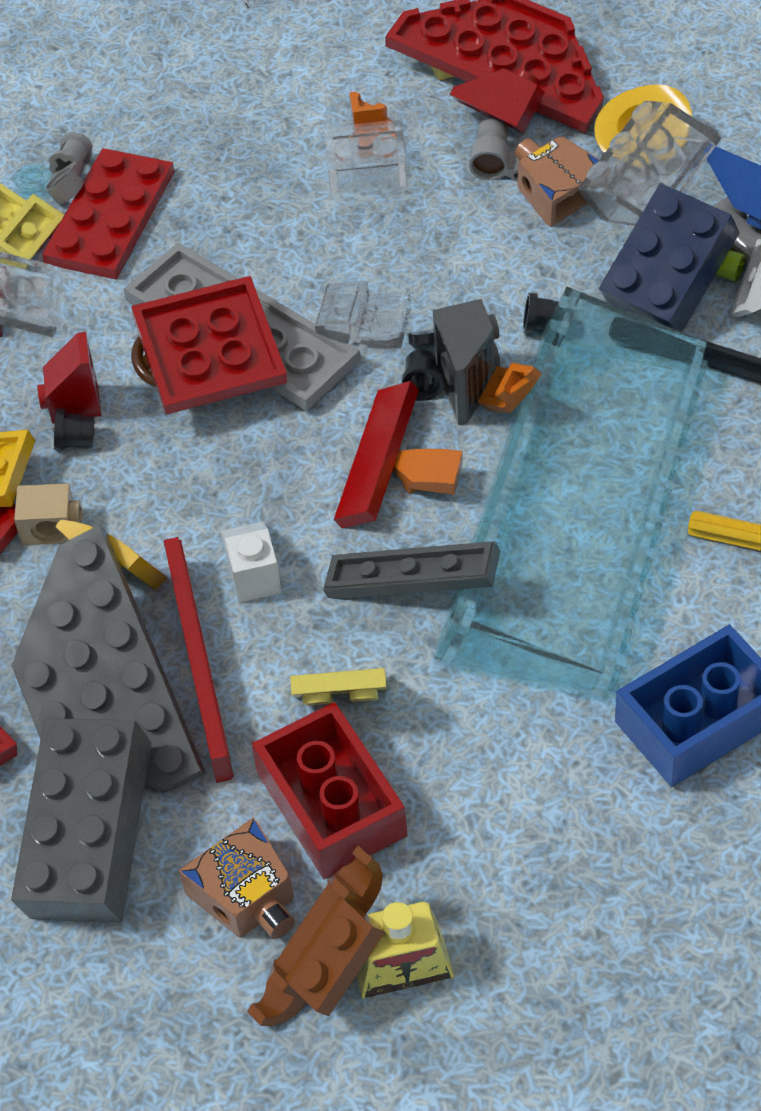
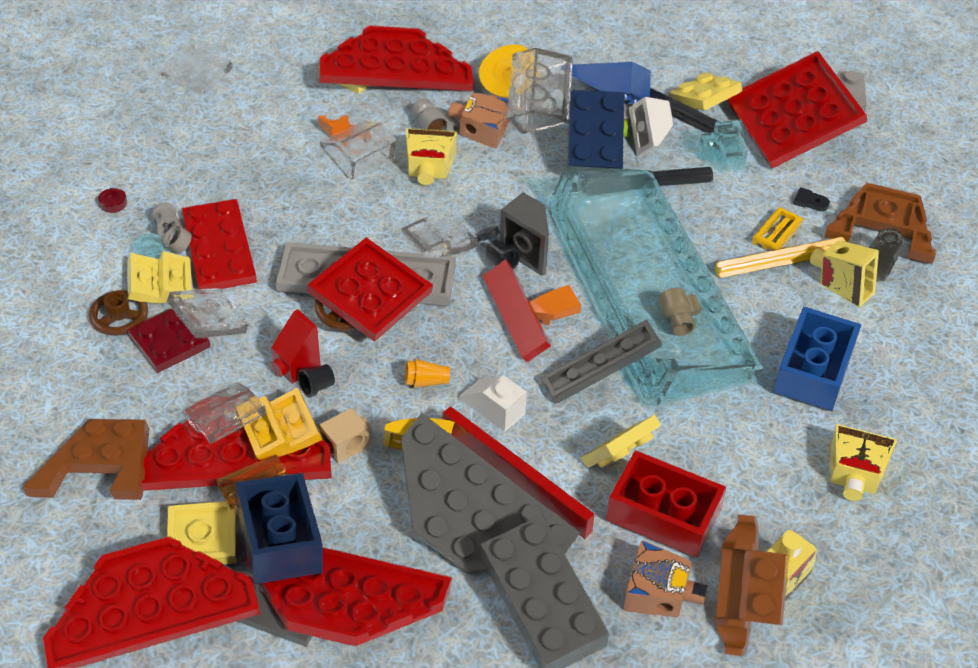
camera: 40 degrees left, 5 degrees down
(40, 106) = (112, 200): none -> dark red tile
(199, 483) = (424, 373): none -> light orange cone
(447, 199) = (430, 153): none -> light yellow torso
(502, 96) = (419, 83): red slope -> none
(508, 387) = (566, 239): orange slope -> none
(537, 313) = (541, 192): black piece -> none
(581, 544) = (679, 310): none -> dark tan piece
(636, 871) = (859, 460): none -> light yellow torso

